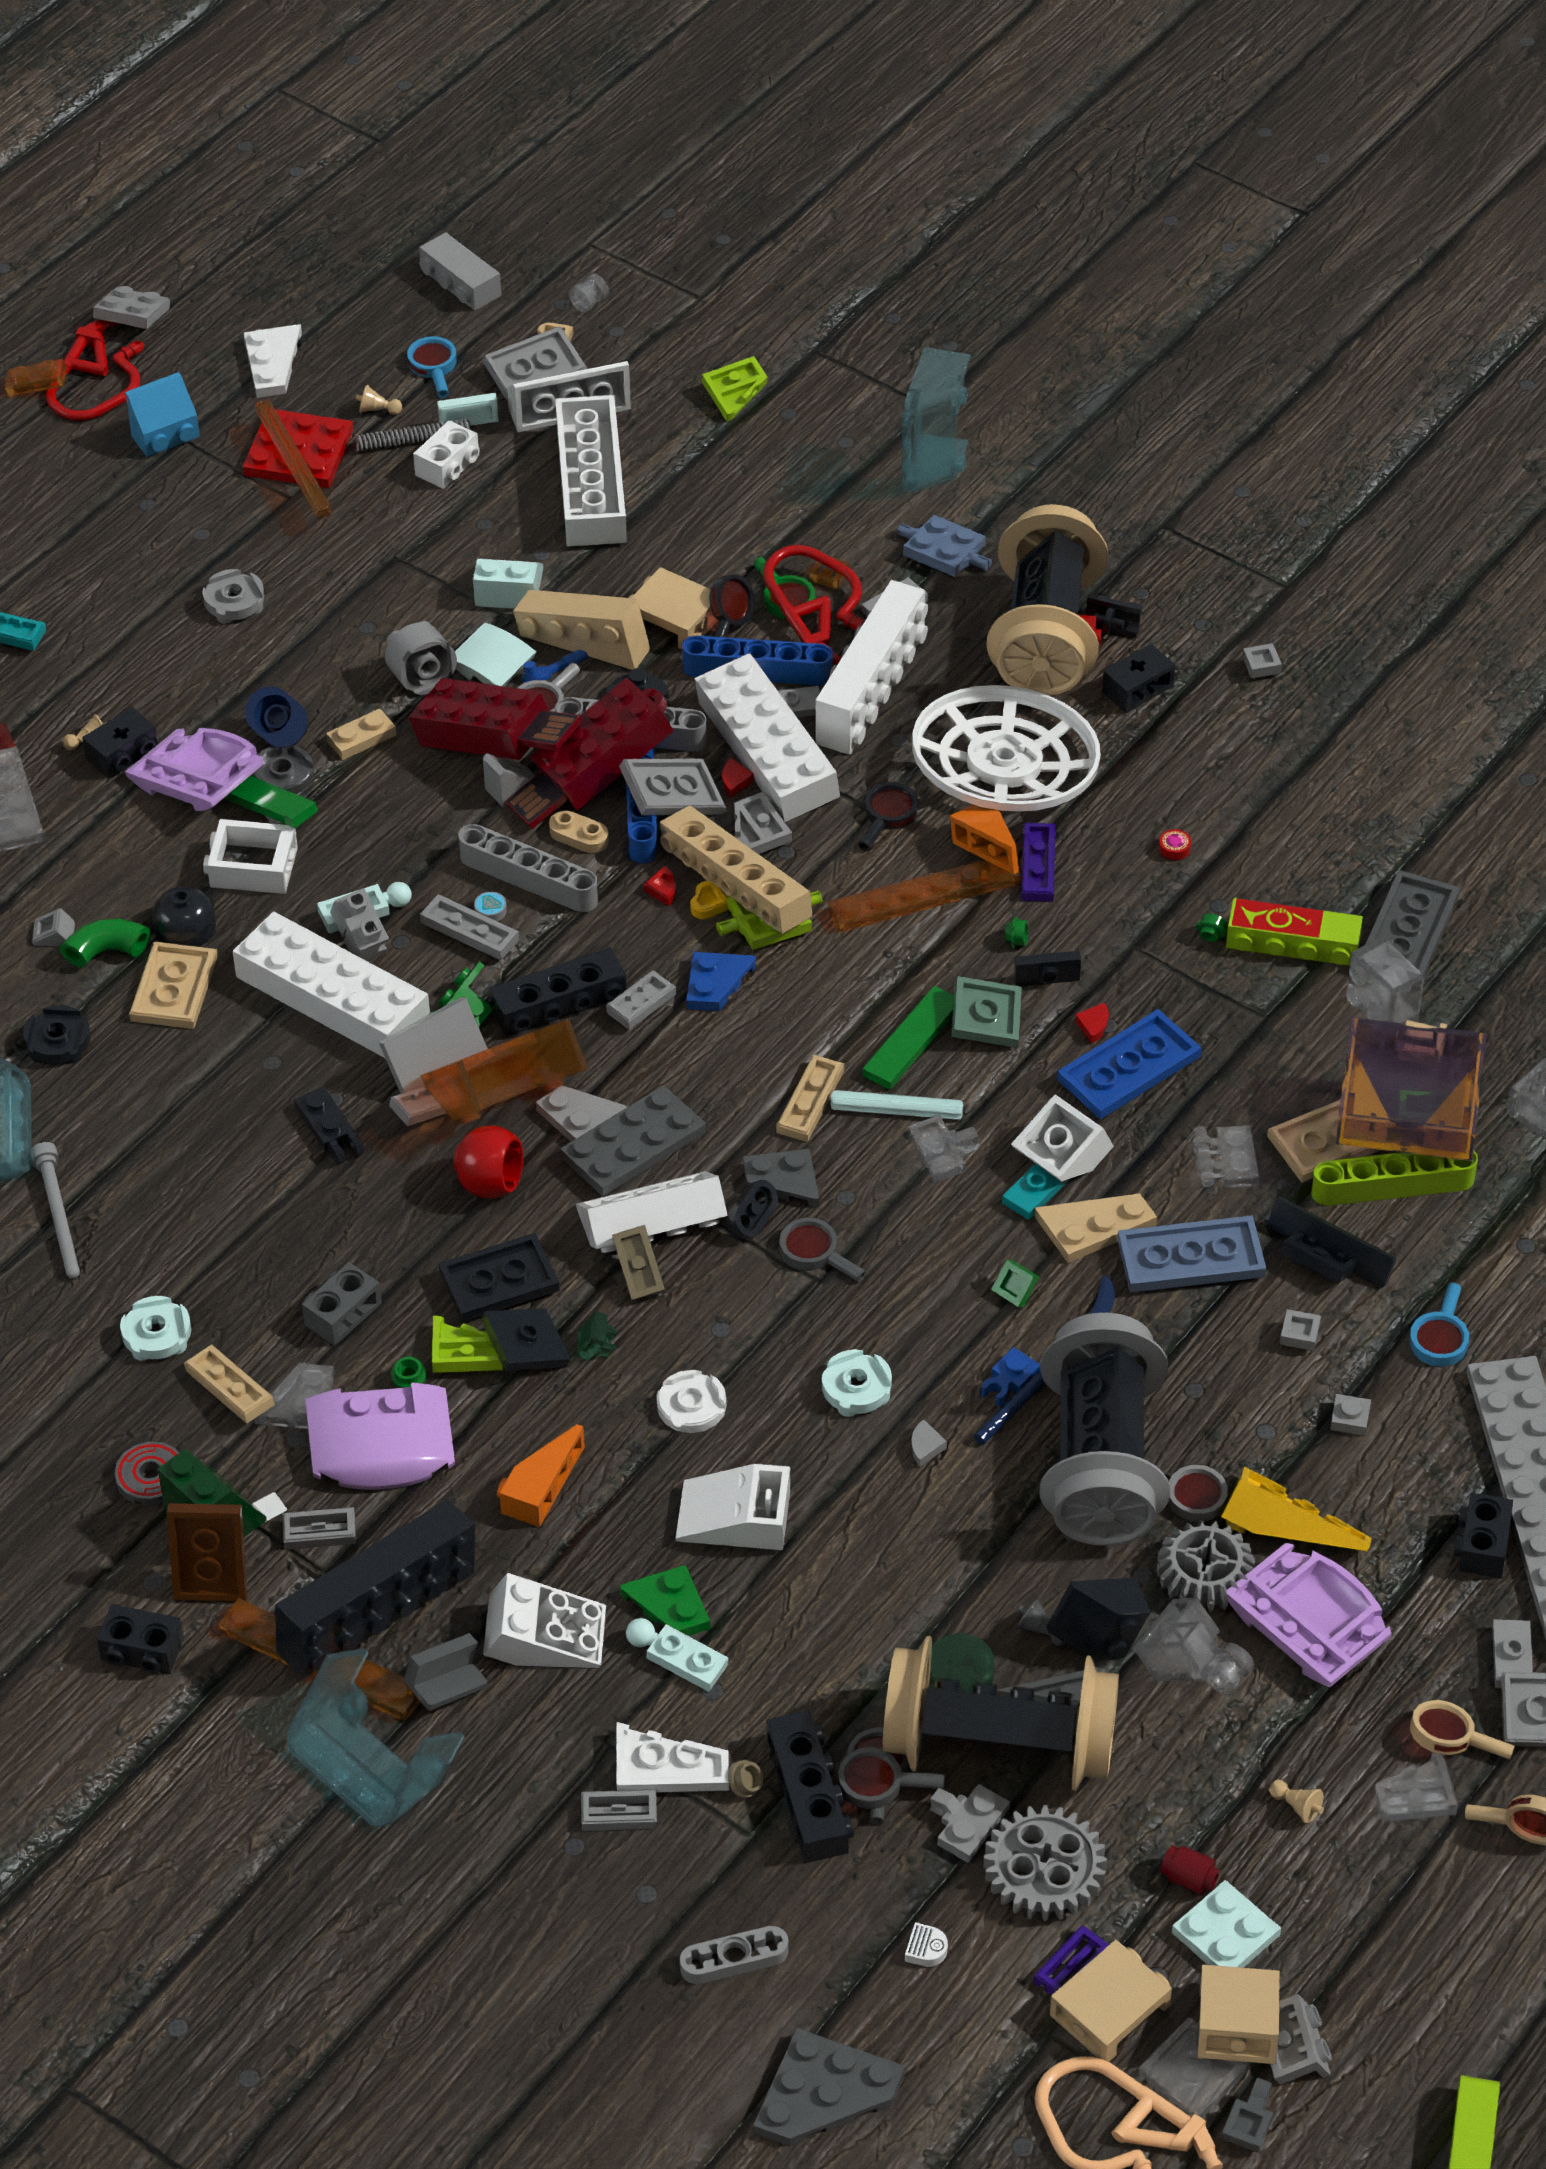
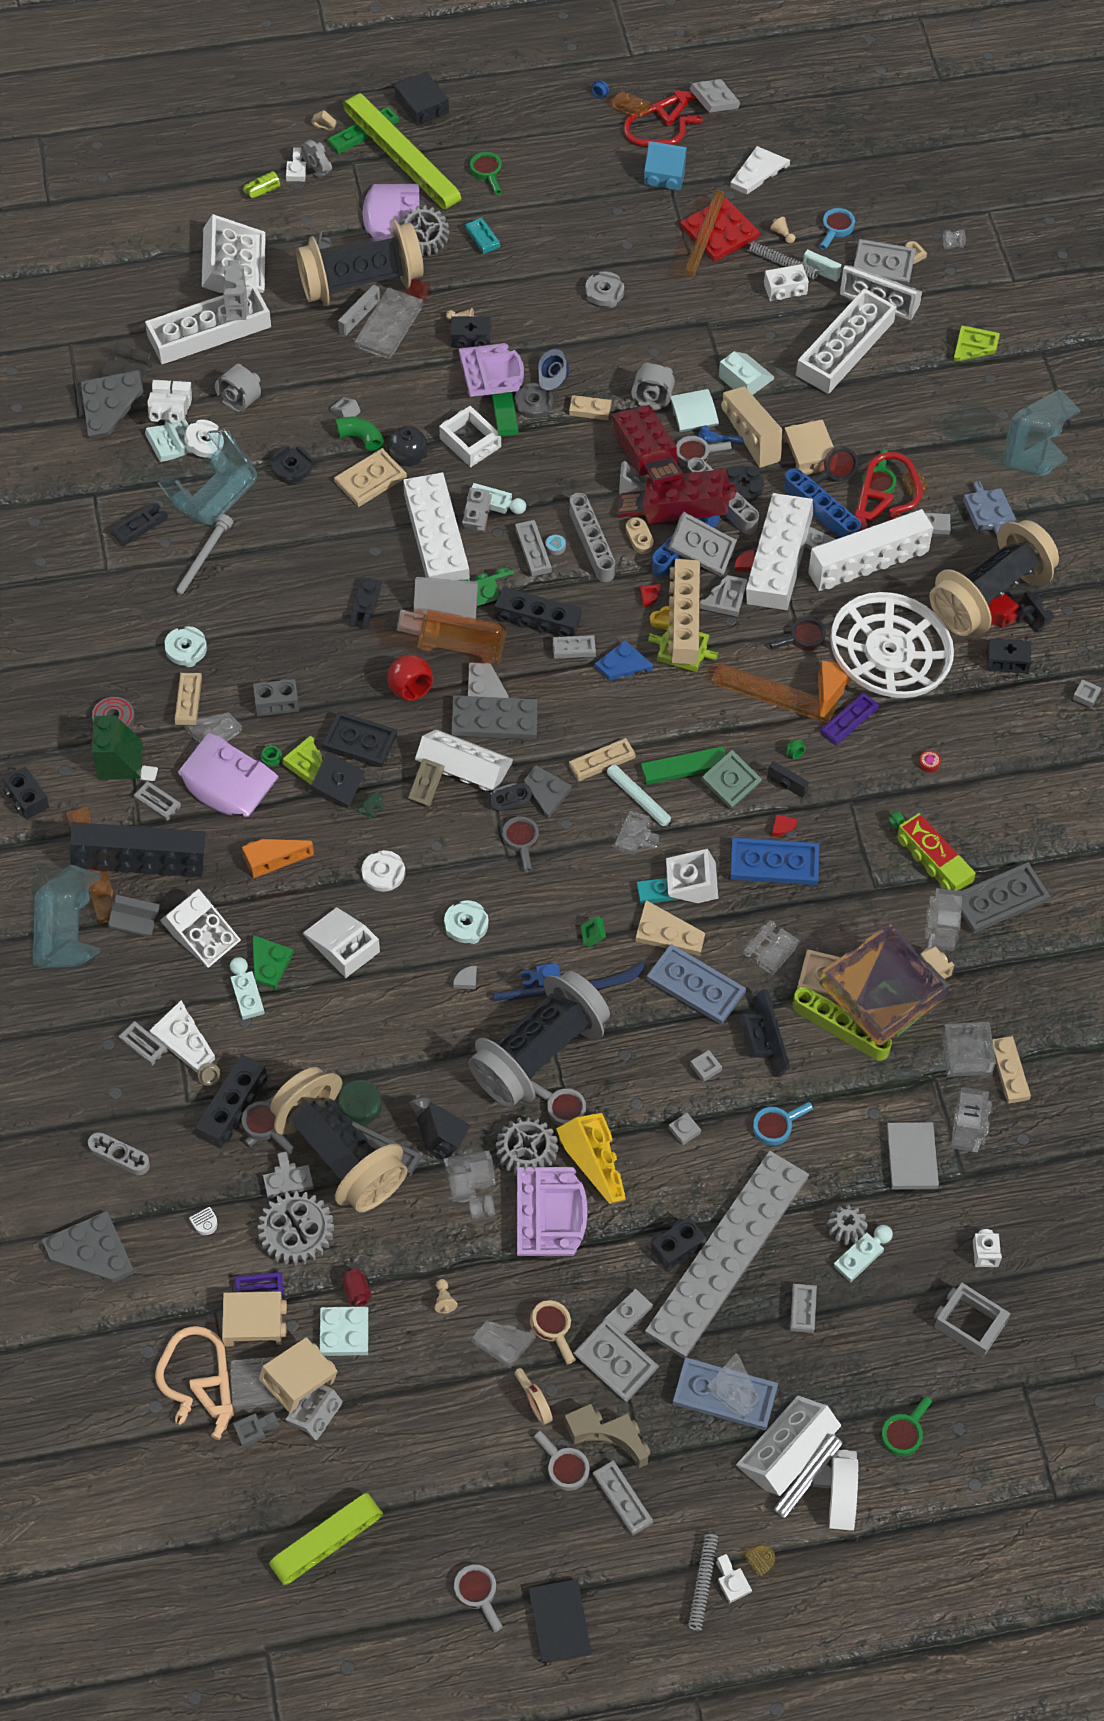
camera: 40 degrees right, 10 degrees up
(207, 1552) = (84, 773): reddish brown plate -> none
(460, 271) = (899, 183): light grey brick -> none

